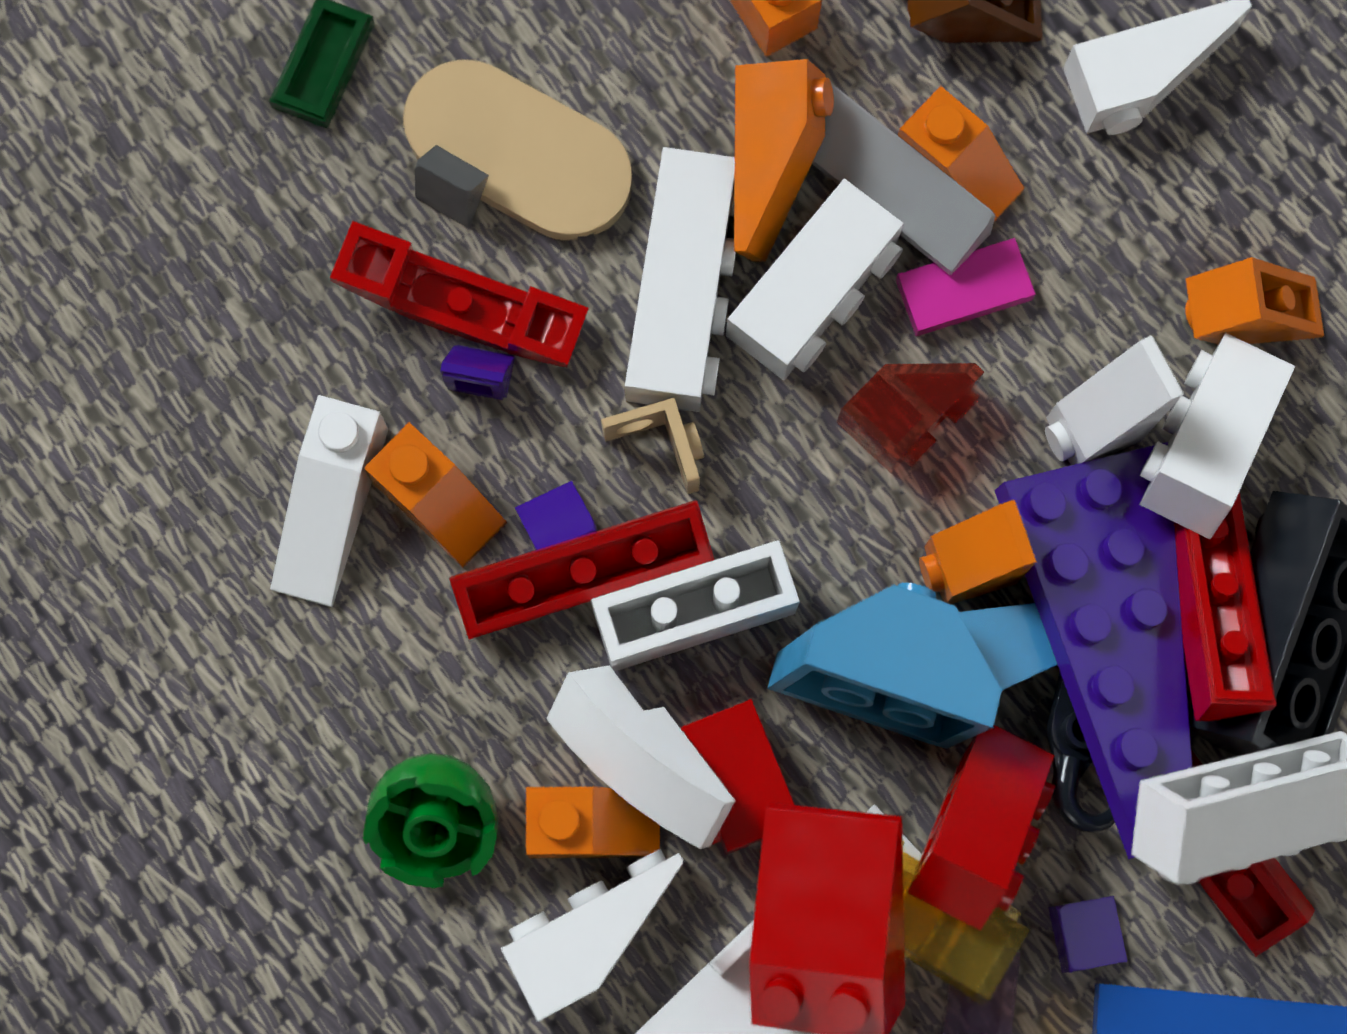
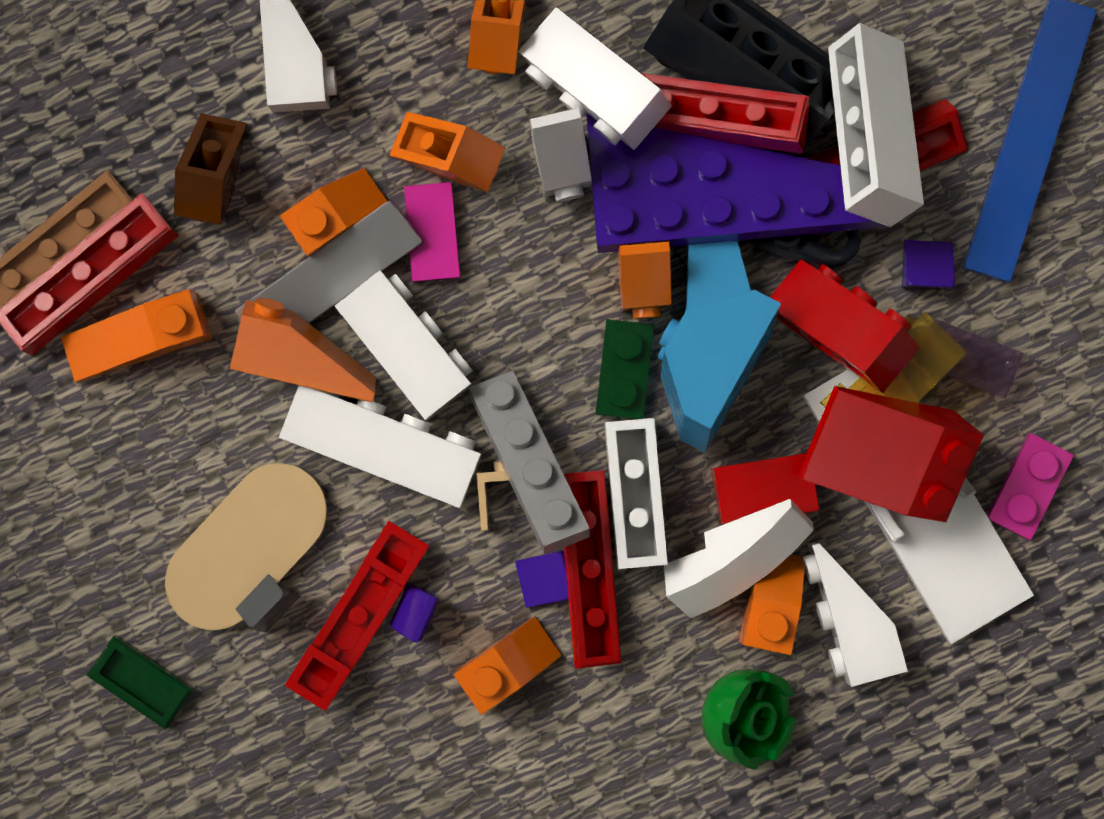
camera: 70 degrees left, 10 degrees up
(327, 499) = (492, 746): white slope -> none
(701, 459) = (529, 462): none -> light grey plate
(850, 563) = (624, 369): none -> dark green plate
(903, 406) = (516, 300): clear red slope -> none
(1074, 282) = (448, 150): none -> orange slope

